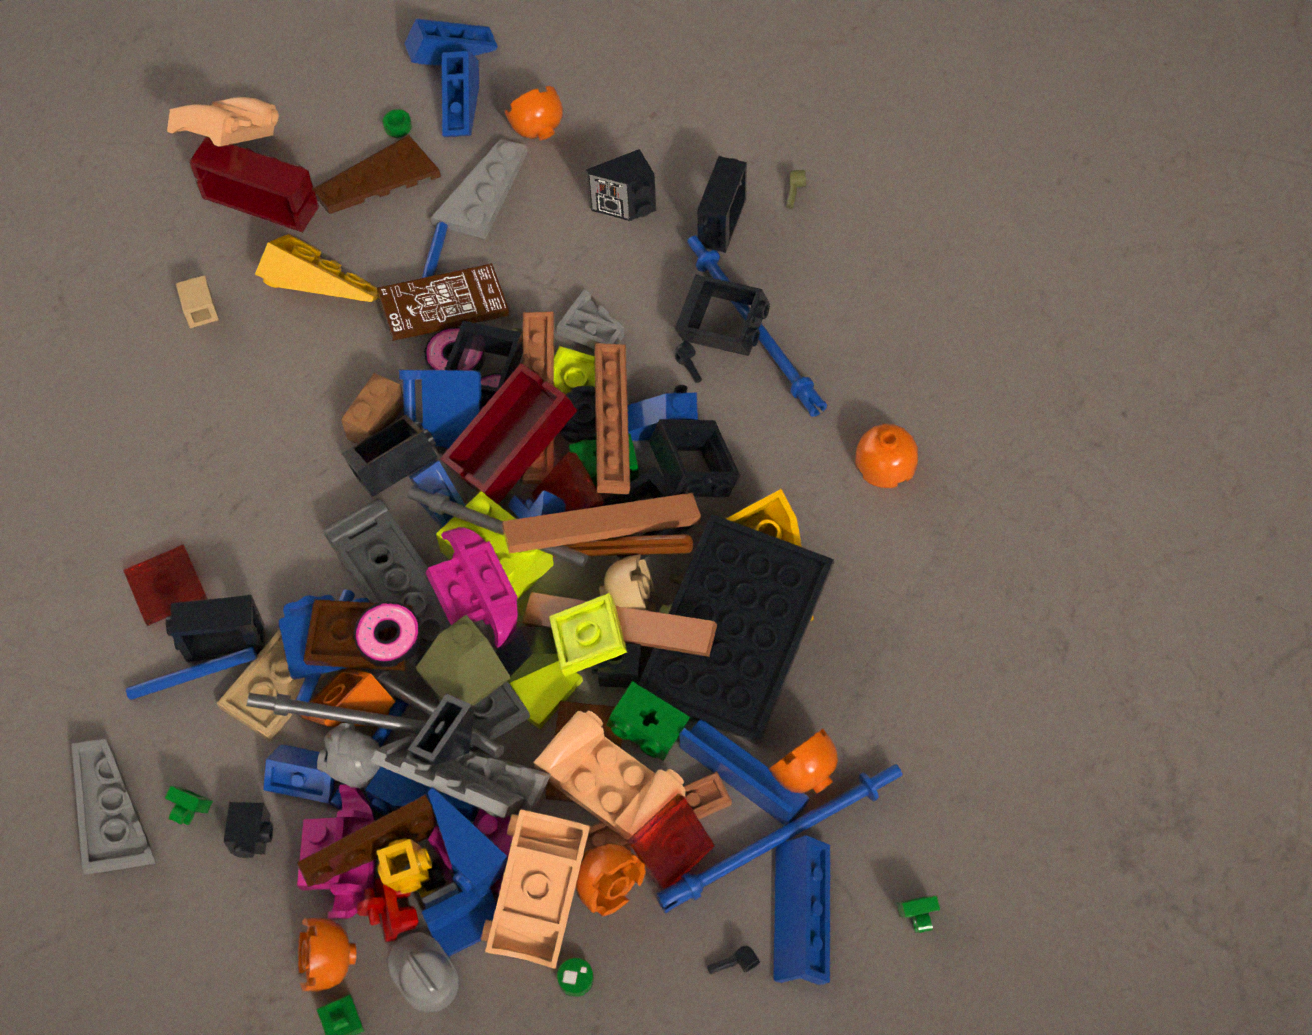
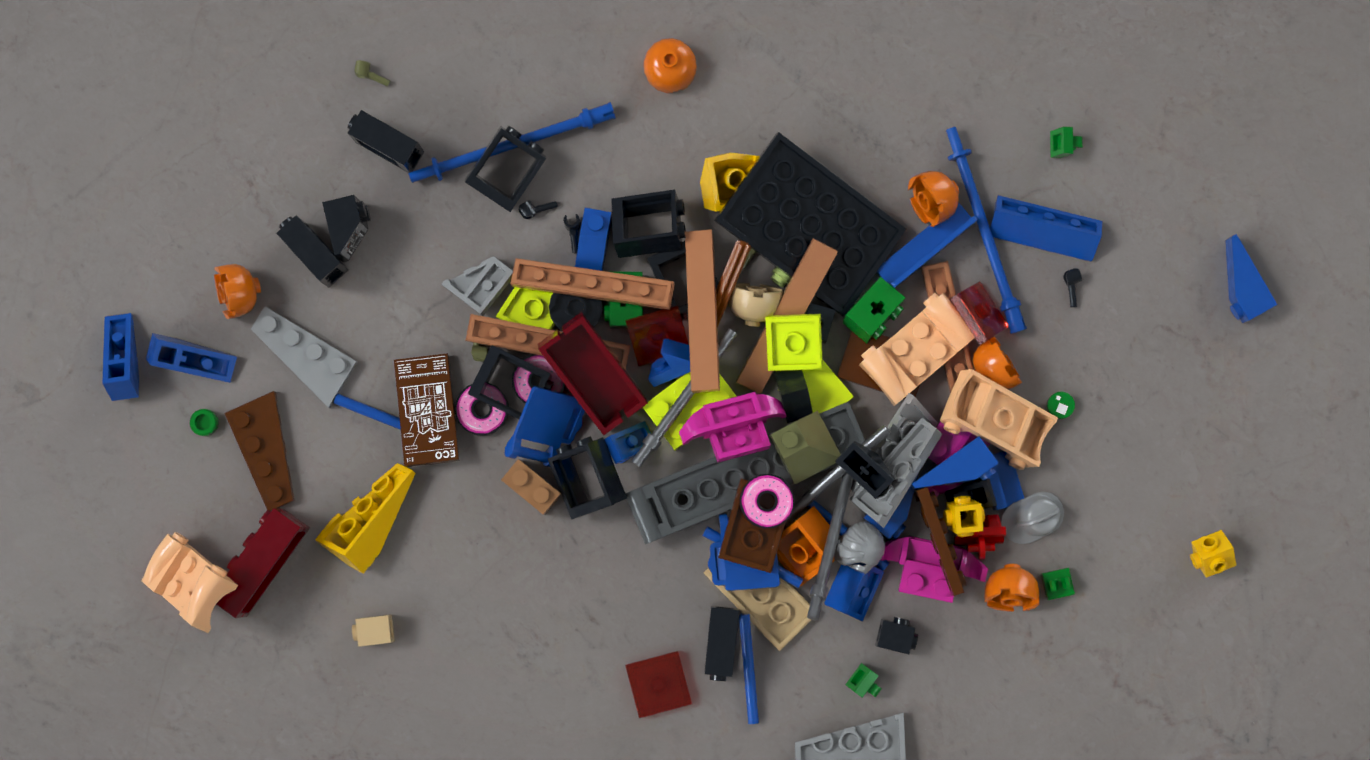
camera: 75 degrees left, 25 degrees up
(595, 146) = (311, 250): none -> black window

